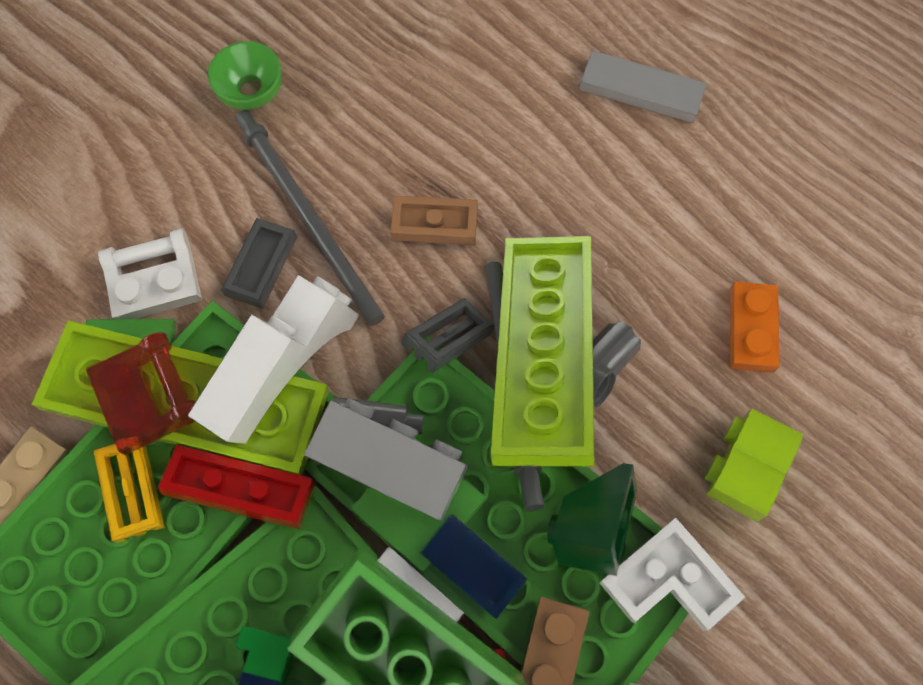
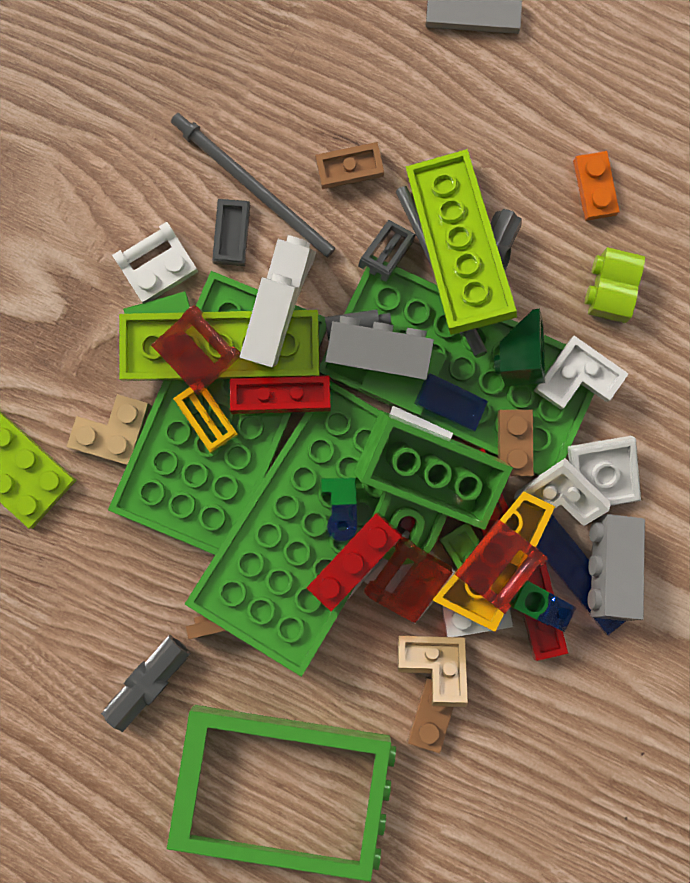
camera: 20 degrees left, 15 degrees up
(241, 64) = (168, 71): bright green piece -> none

